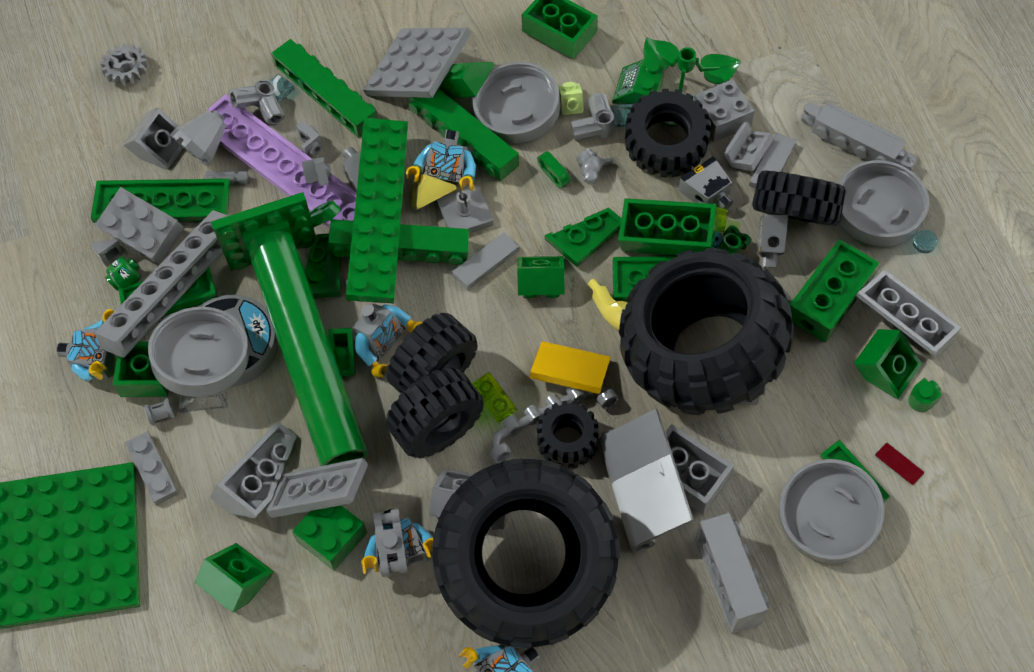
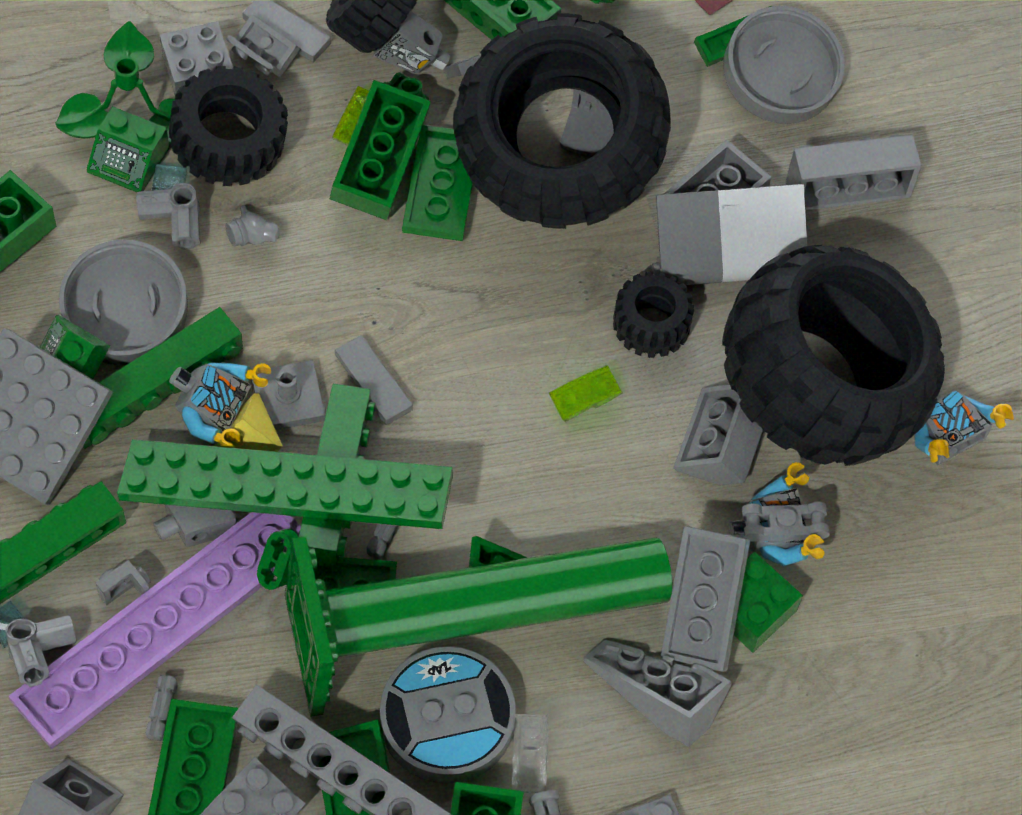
camera: 90 degrees left, 0 degrees up
(198, 351) = (485, 732): light grey brick -> none
(201, 135) = (95, 724): light grey cone -> none
(233, 576) = (802, 724): green slope -> none
(316, 170) = (197, 559): light grey bracket -> none
(378, 331) = (479, 518): torso -> none
(430, 347) = (545, 437): black tyre -> none
(434, 412) = (623, 442): black tyre -> none
(512, 426) = (615, 352): light grey bar -> none
(540, 276) = (413, 313): green slope -> none
(553, 169) = (246, 275): green beam -> none
(570, 367) = (556, 299): yellow tile -> none
(571, 98) = (127, 228): yellowish green bracket -> none
(584, 238) = (360, 254): green wing -> none
(606, 304) = (489, 235): light yellow animal -> none
(707, 184) = (312, 101): light grey torso -> none

